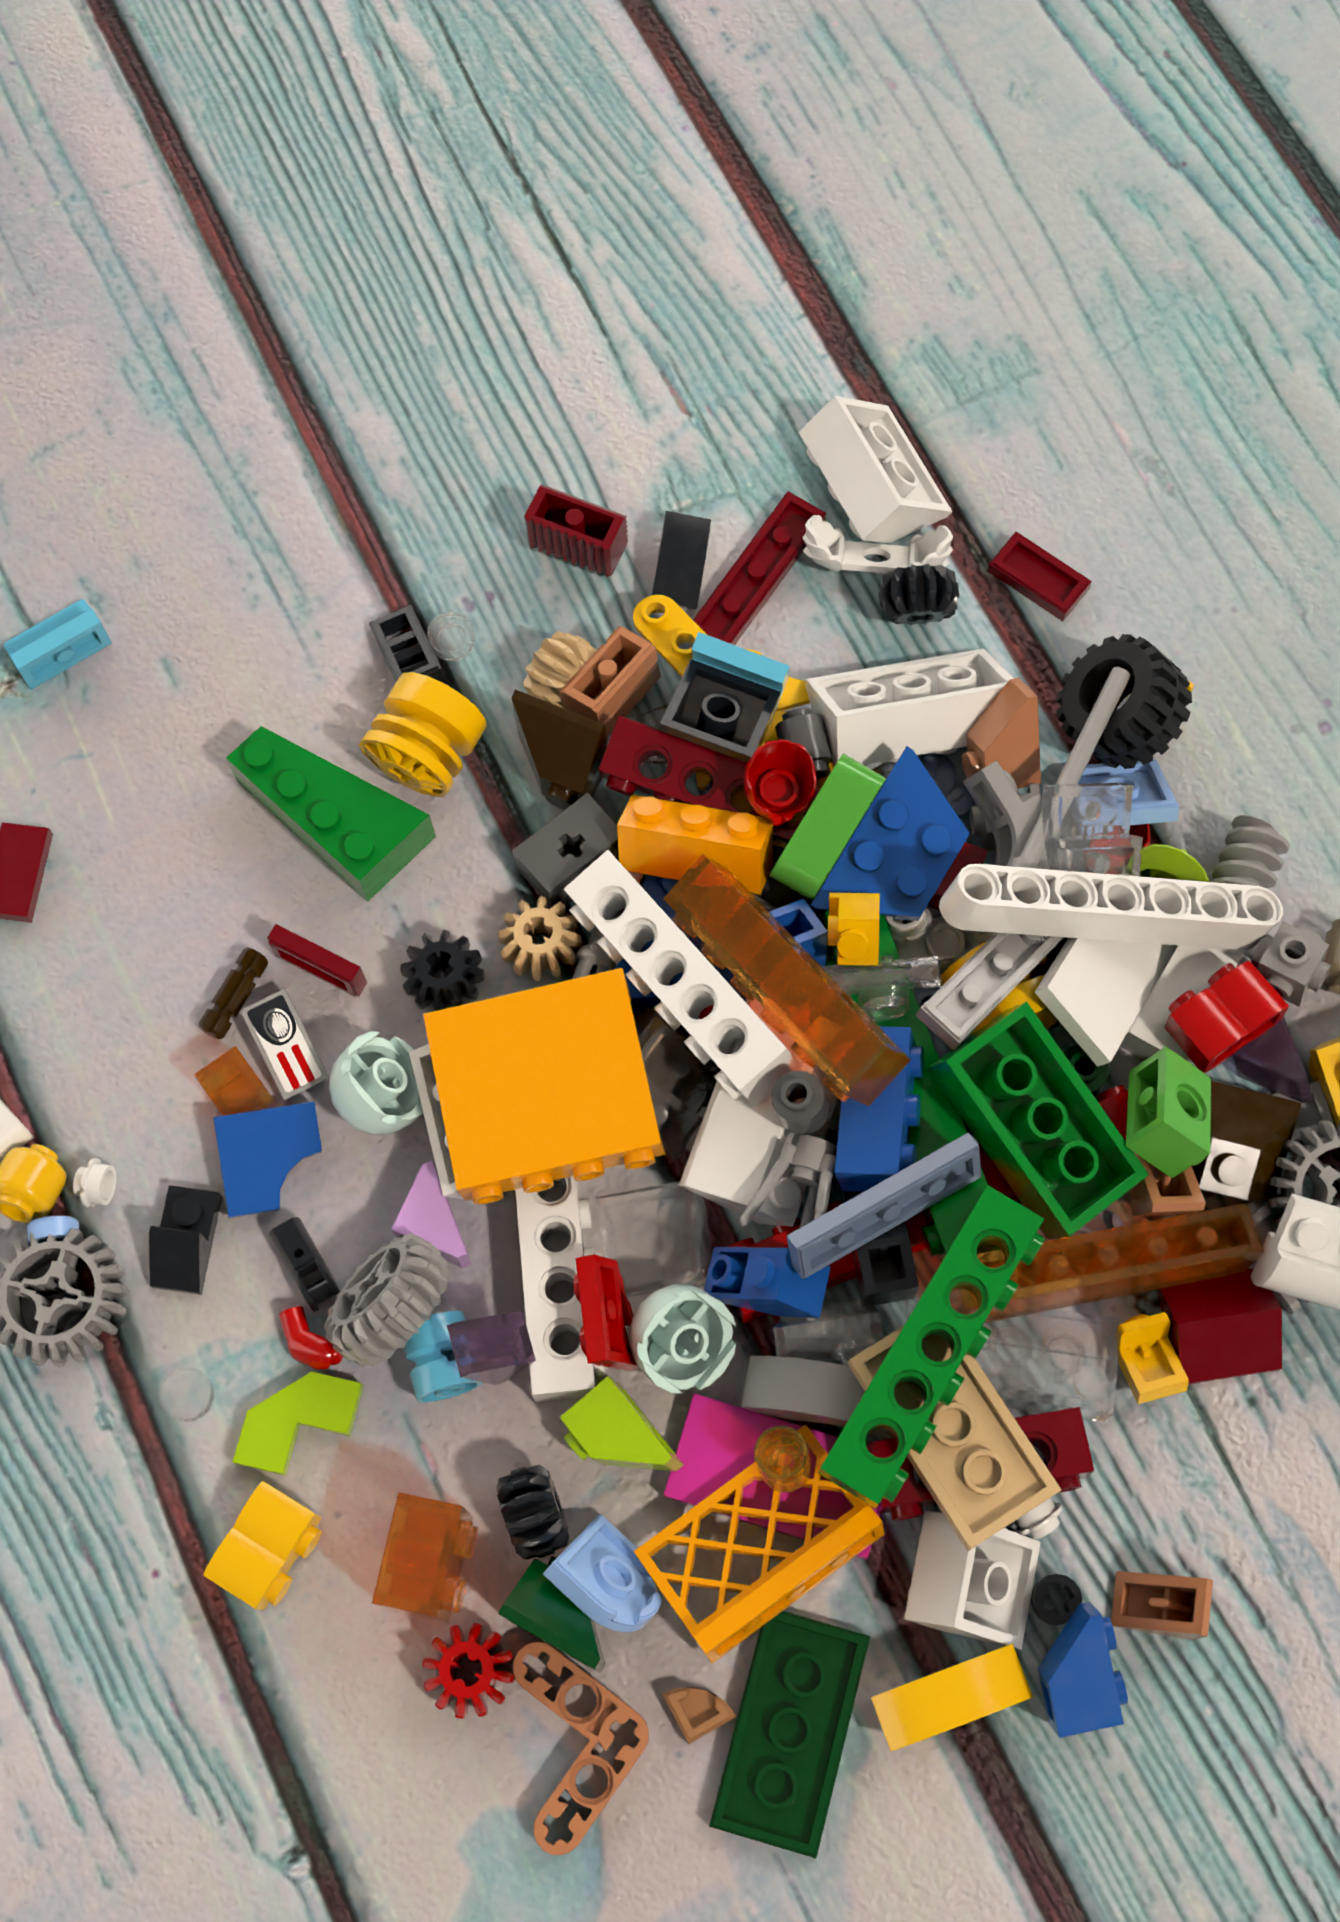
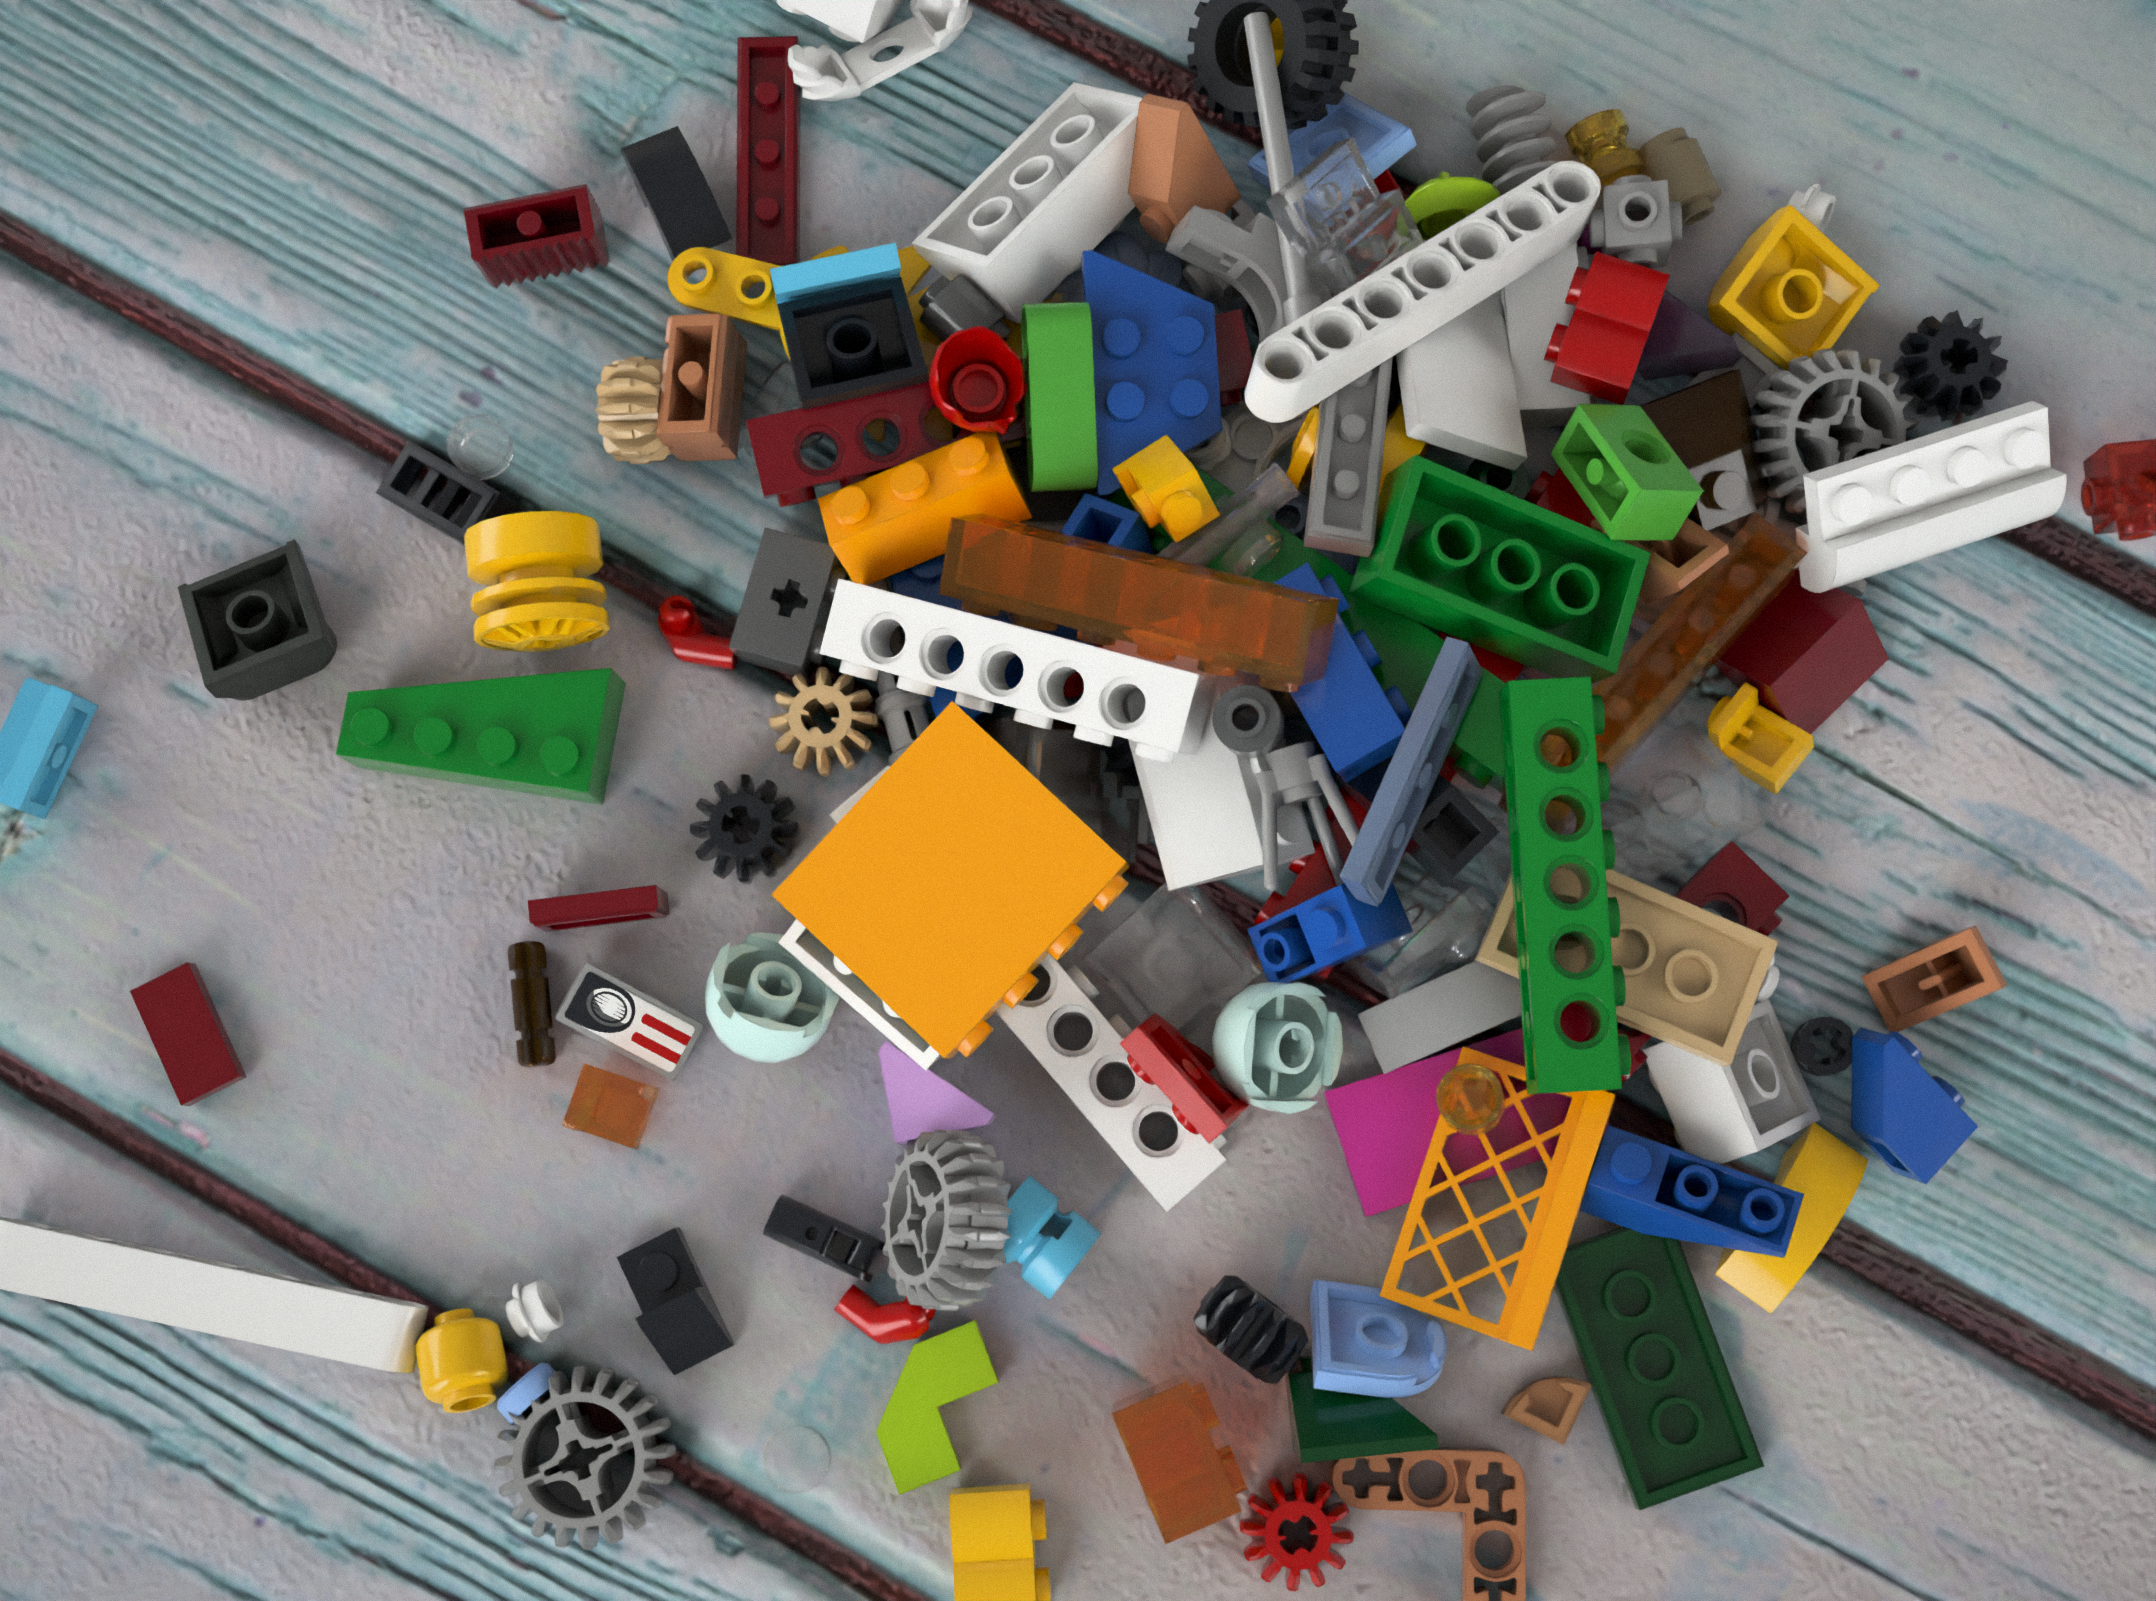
camera: 30 degrees left, 10 degrees up
(238, 655) = (258, 625): none -> pearl dark grey slope
(260, 1151) = (690, 1155): blue tile -> none
(491, 1347) = (1092, 1192): clear purple slope -> none
(494, 832) = (689, 638): none -> red arm
(560, 748) = (699, 498): dark brown slope -> none
(616, 1431) = (1277, 1186): lime slope -> none
(884, 1626) = (1687, 1197): none -> blue slope
(918, 594) = (967, 66): black gear -> none
(1309, 903) = (1603, 146): none -> clear yellow wheel

